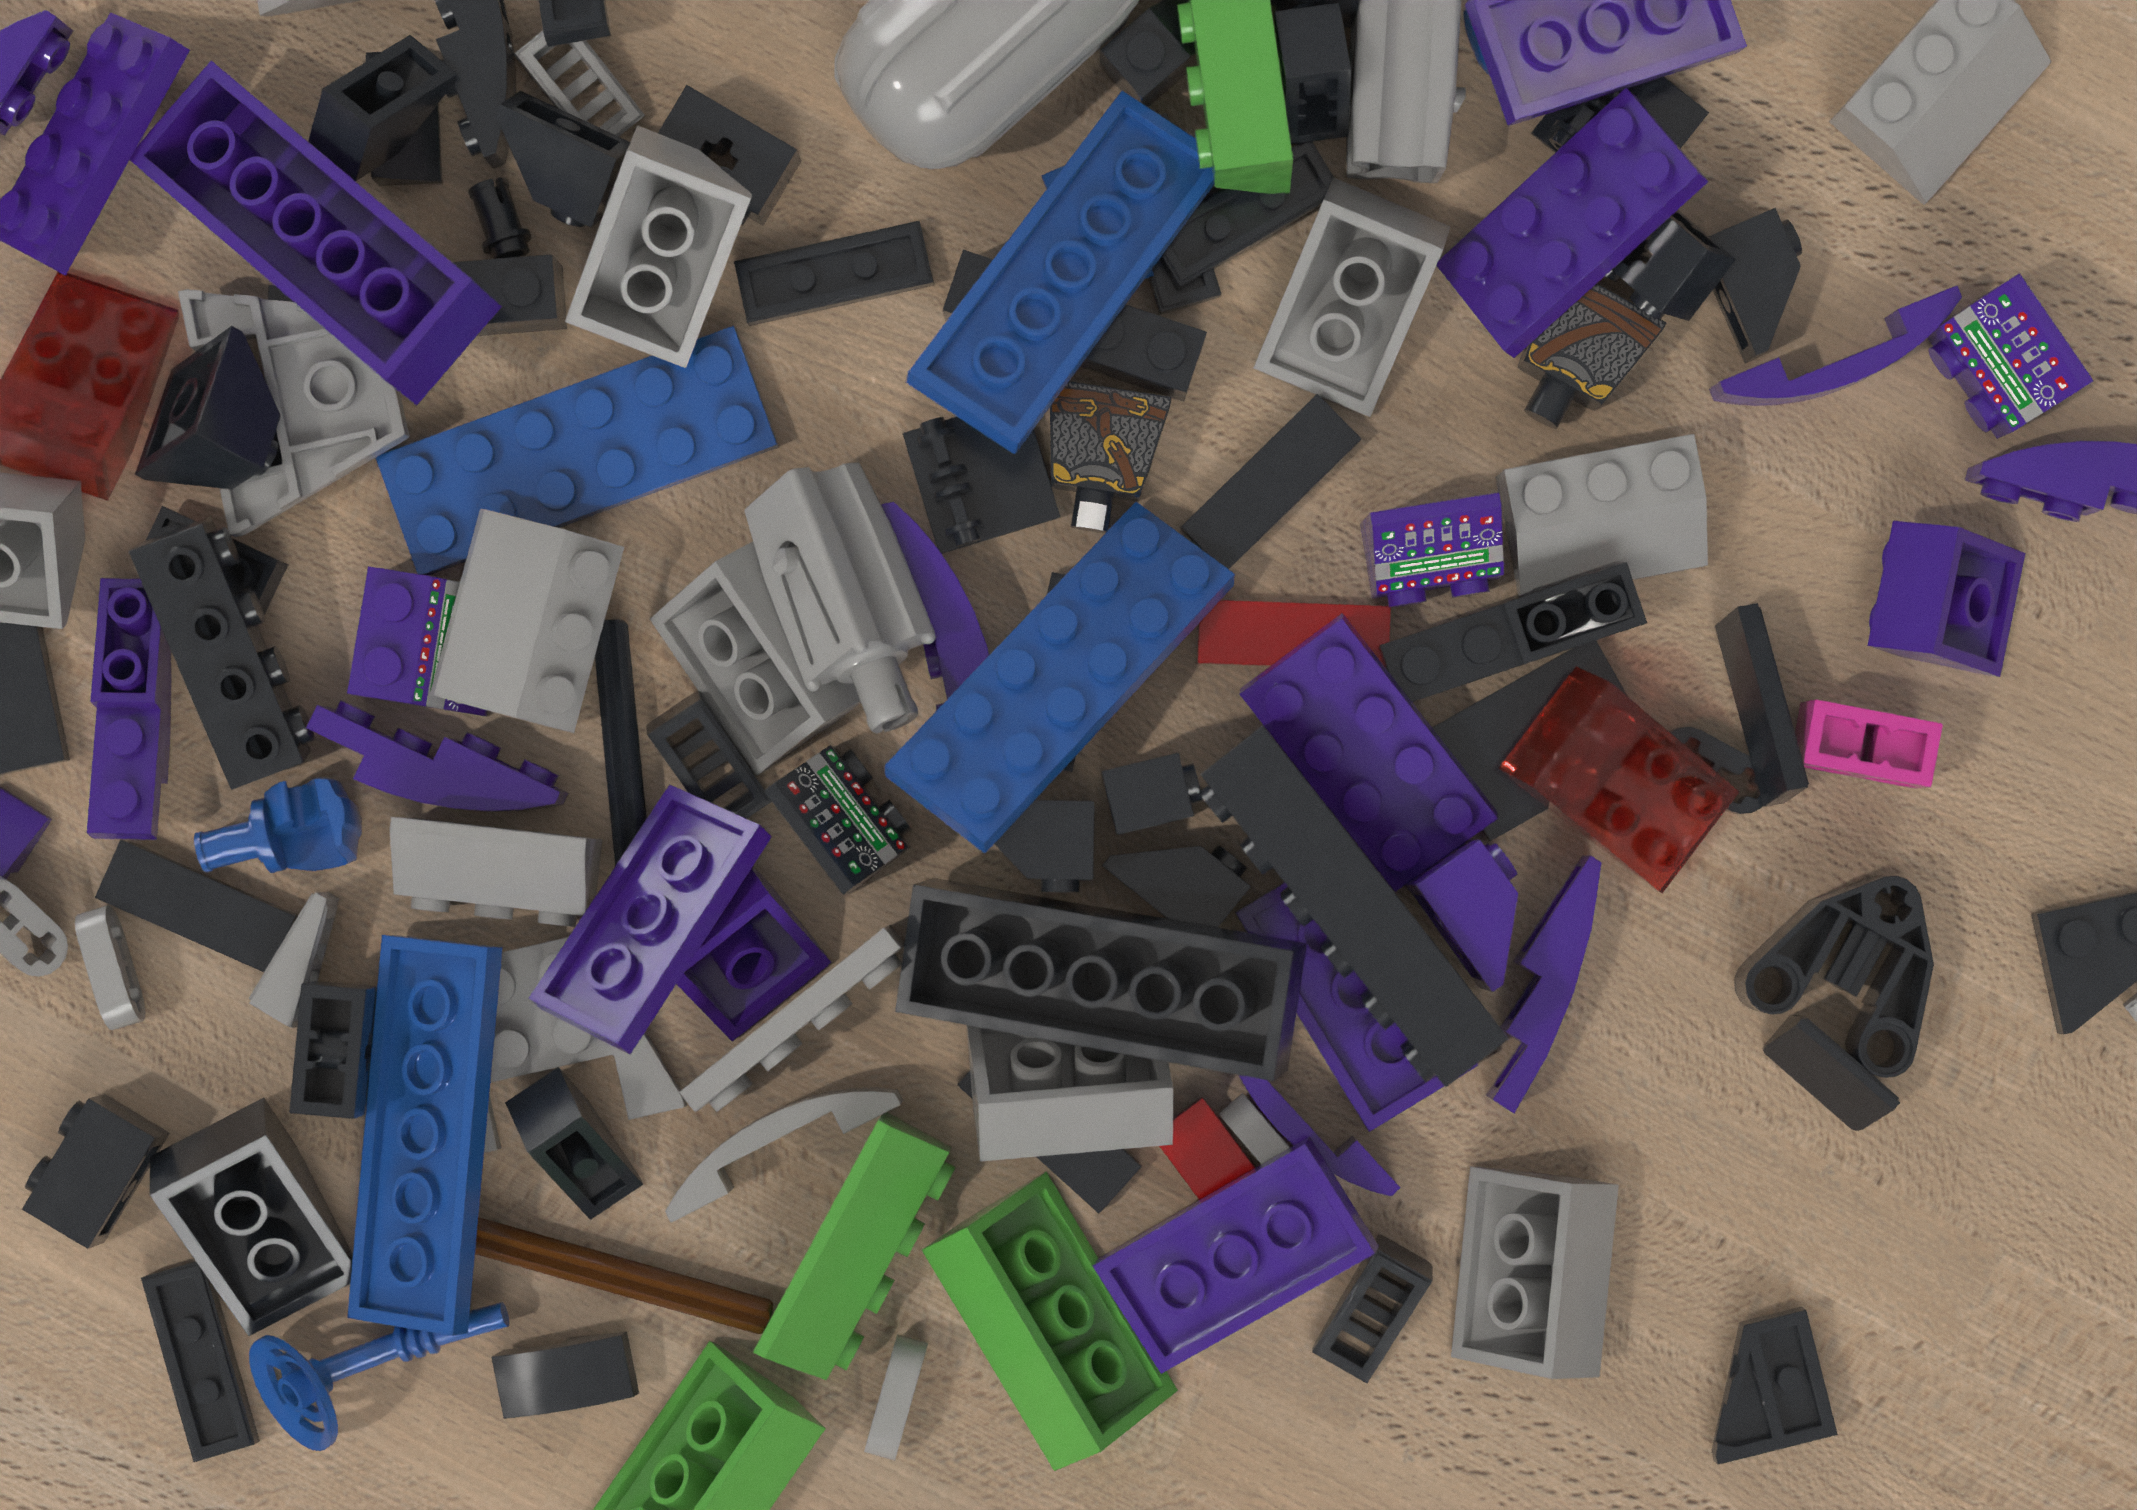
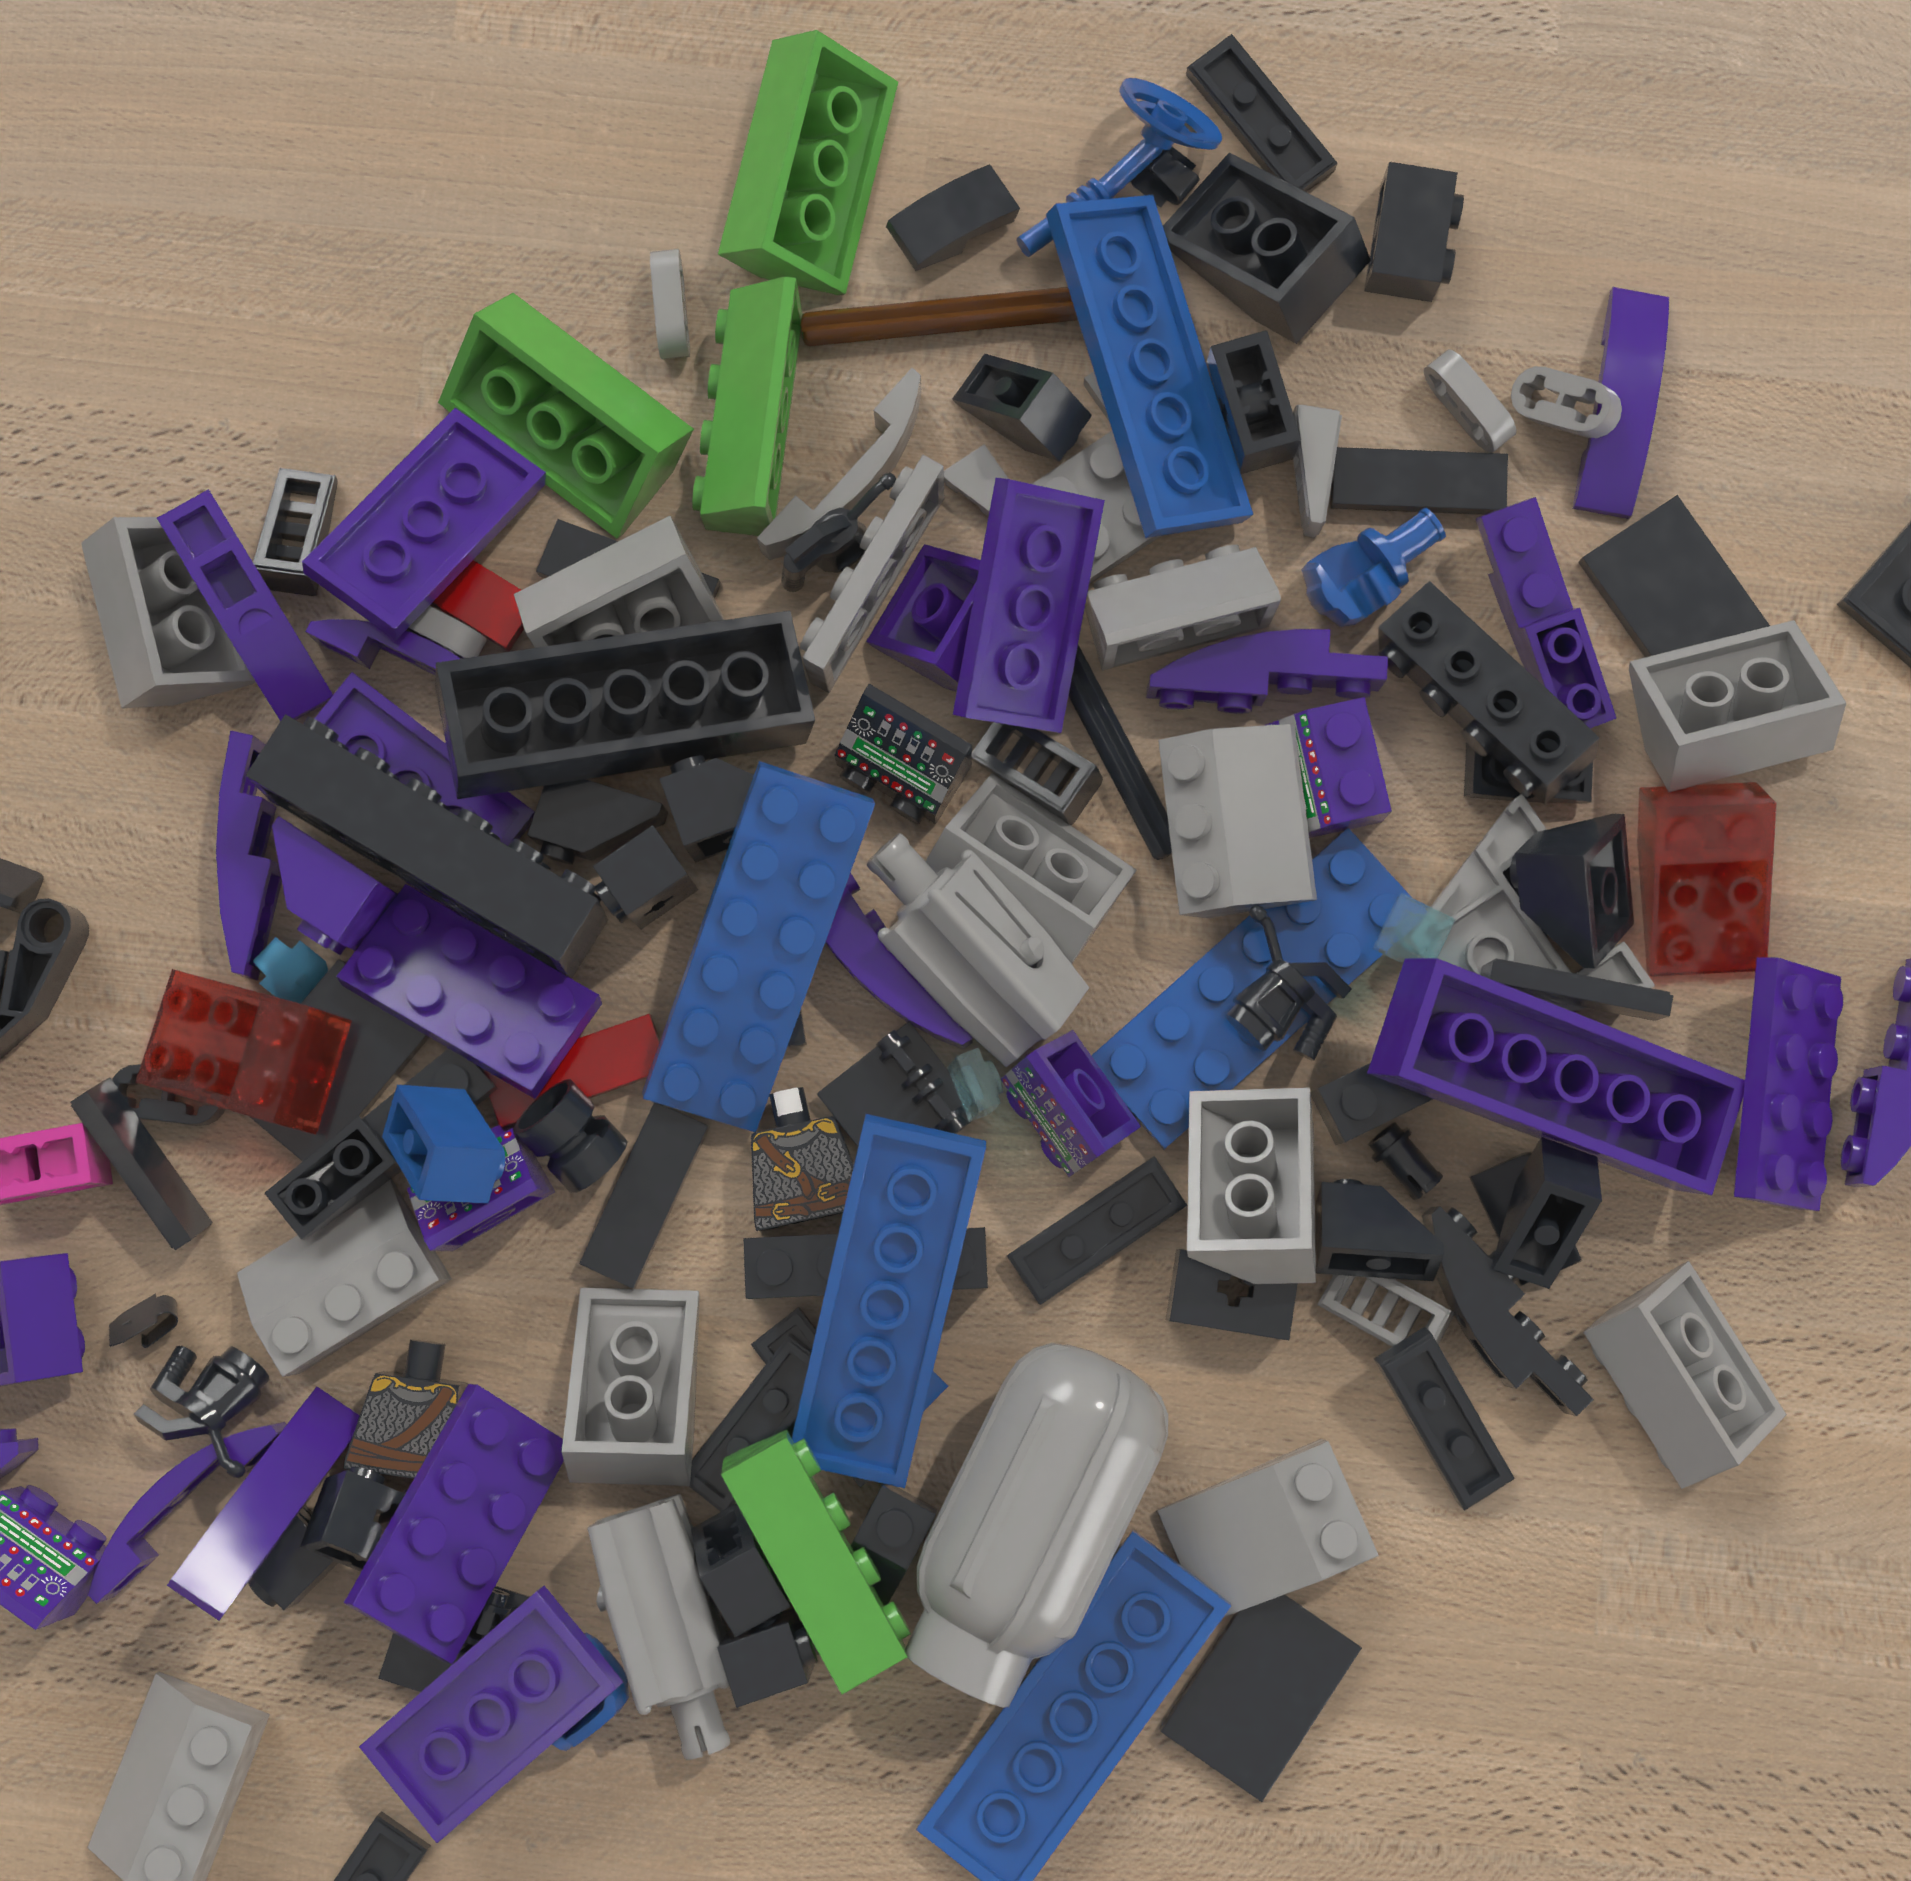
camera: 160 degrees right, 5 degrees down
(259, 312) = (1581, 990): none -> black tile
(324, 1332) = (1171, 180): none -> black piece
(397, 434) = (1413, 930): none -> clear light blue plate
(565, 424) = (1273, 1001): none -> black piece
(810, 400) = (1068, 1103): none -> dark purple slope
(822, 1072) = (831, 541): none -> black piece
(896, 459) = (976, 1083): none -> clear light blue plate
(1319, 561) = (566, 1131): none -> black wheel
(1448, 595) = (443, 1144): none -> blue brick
(1453, 1240) = (245, 606): none -> dark purple slope
(1545, 853) = (290, 972): none -> dark azure piece
(1751, 313) = (265, 1504): none -> dark purple slope
(1766, 446) = (220, 1393): none -> black piece
(1809, 551) = (142, 1317): none -> black piece

